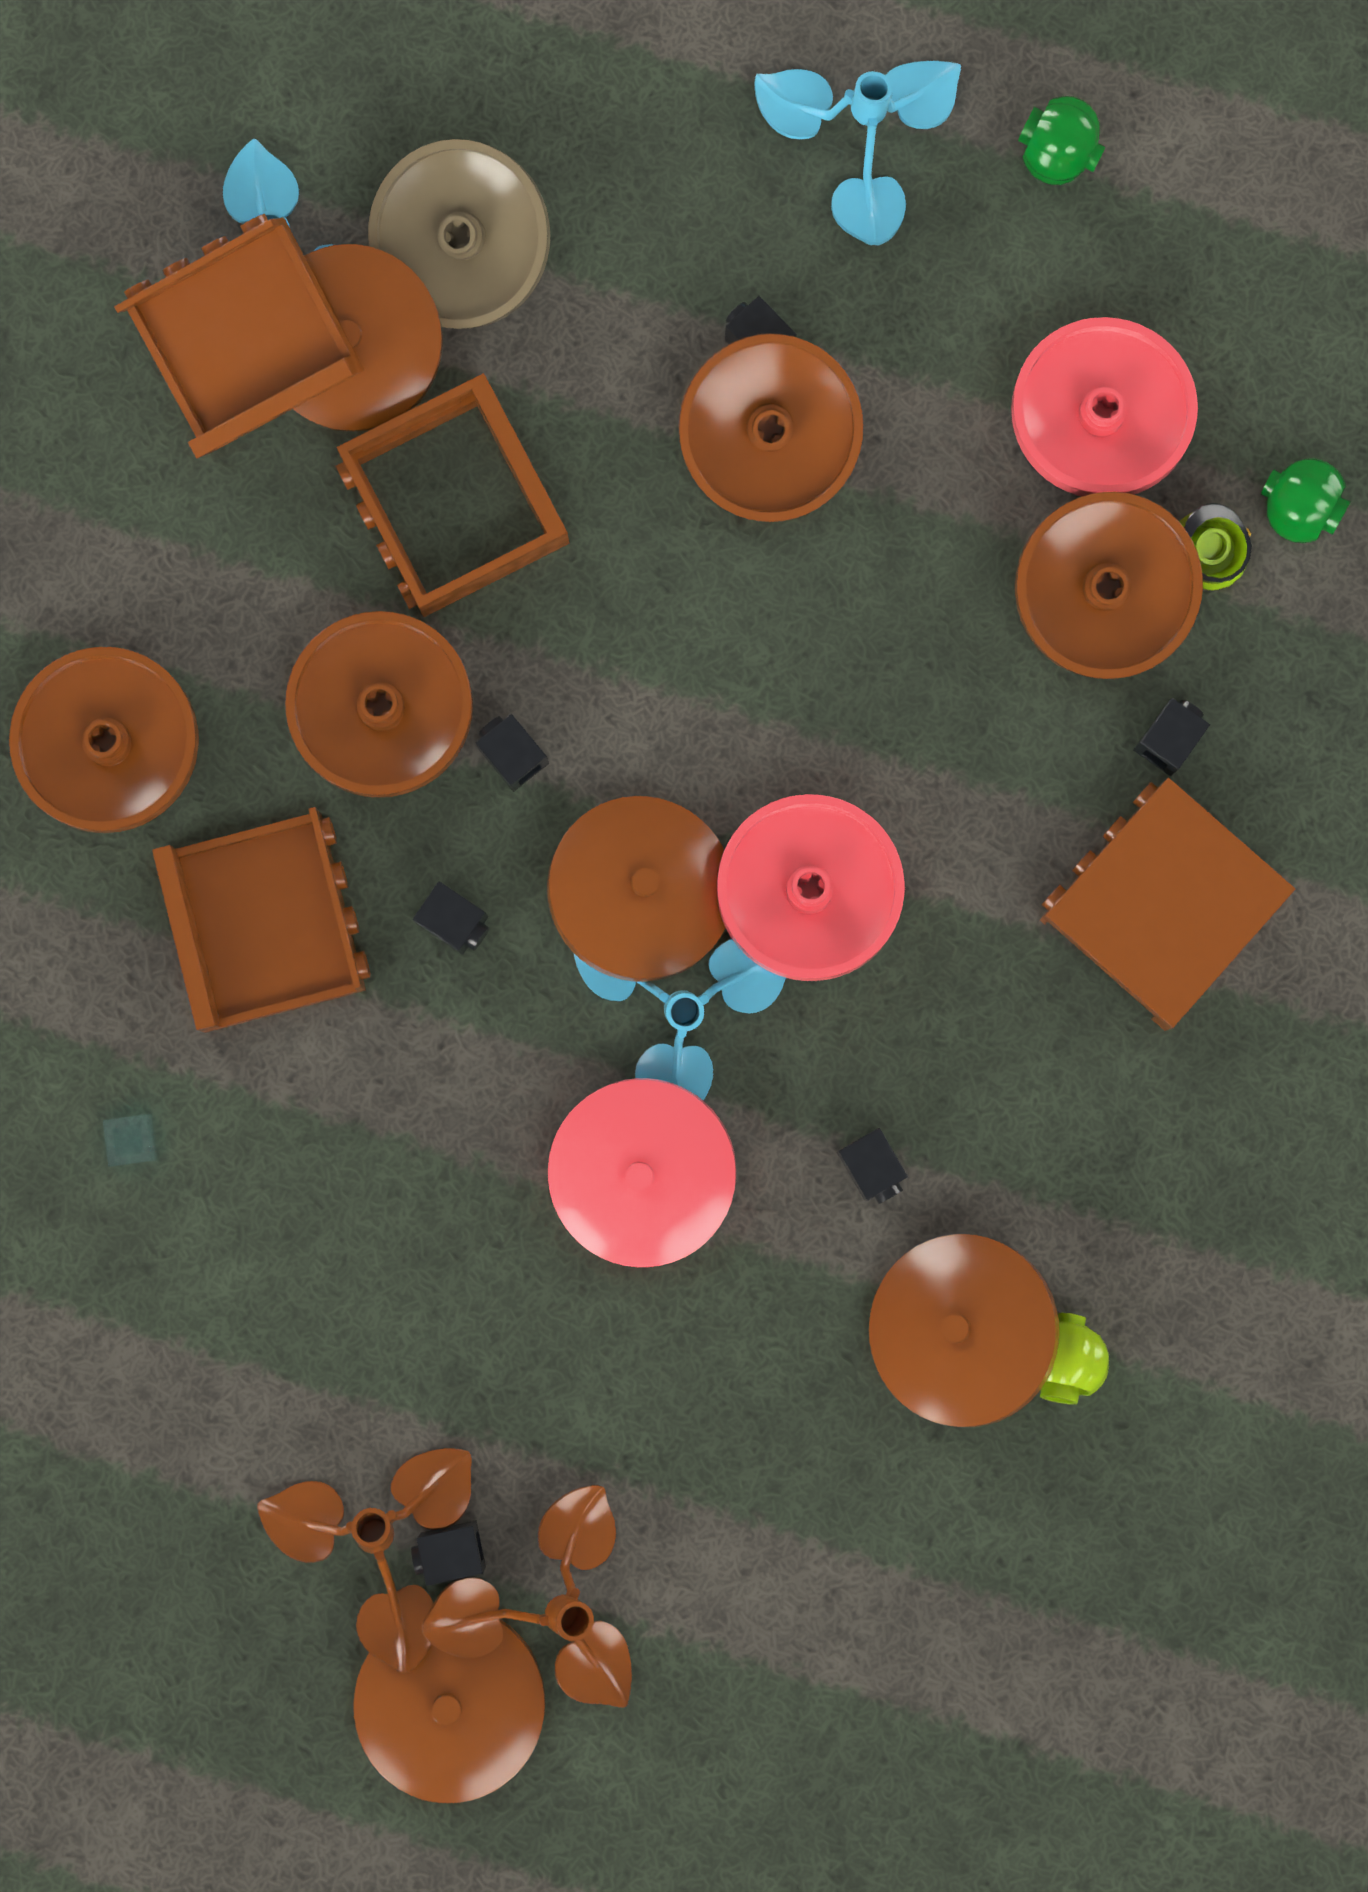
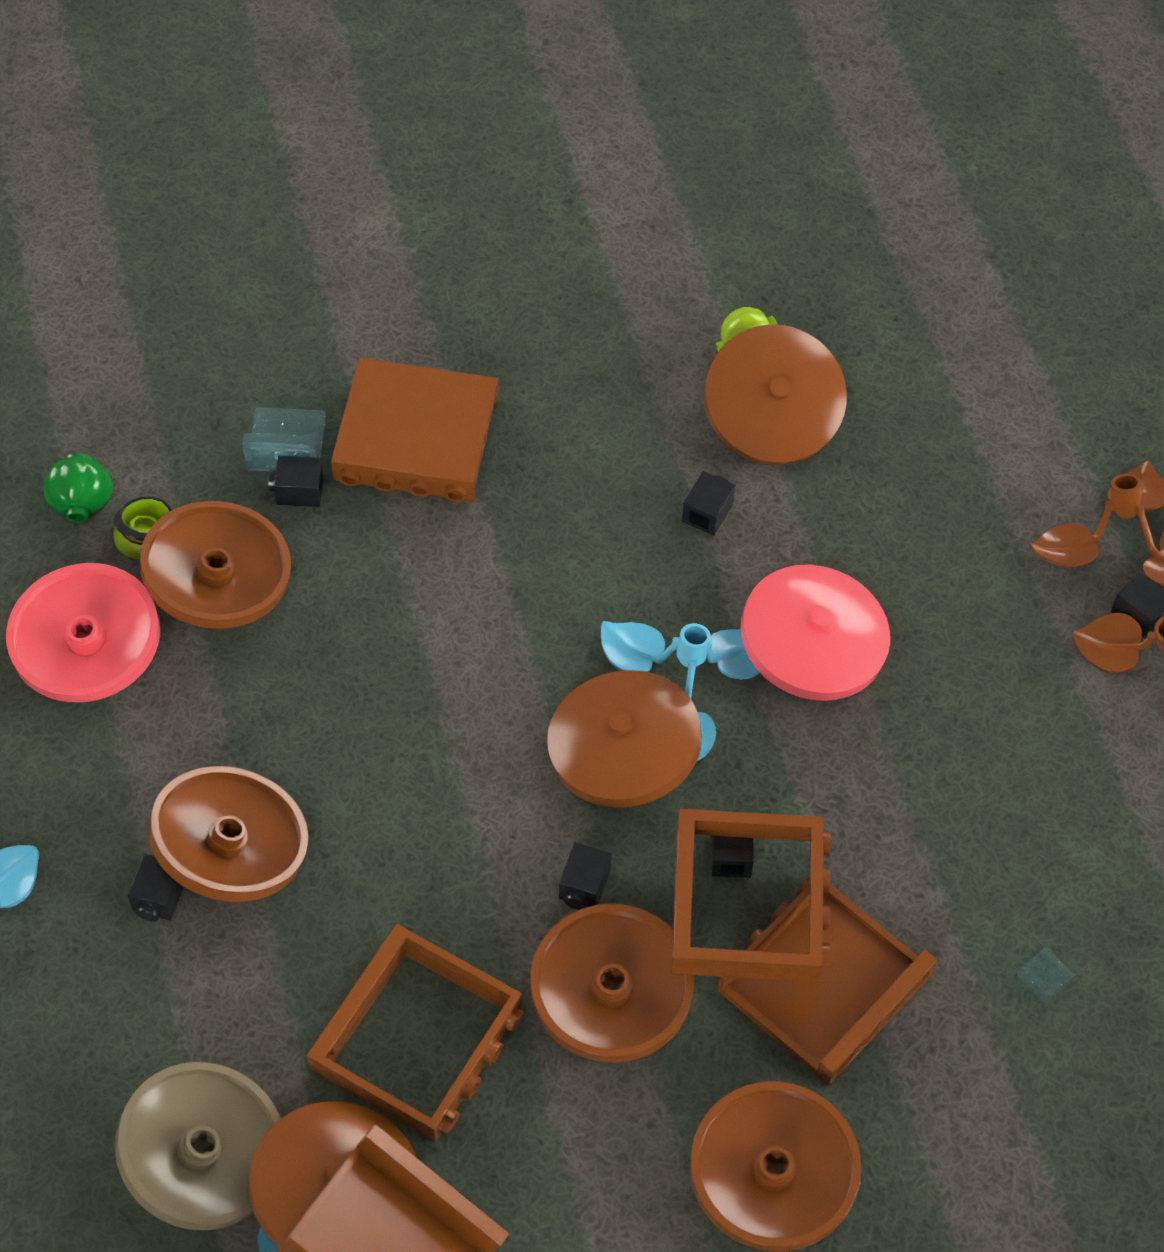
camera: 125 degrees left, 25 degrees down
(337, 958) = (743, 963): none -> dark orange window
(810, 887) = (550, 630): coral dish -> none
(1241, 757) = (283, 434): none -> clear light blue bracket

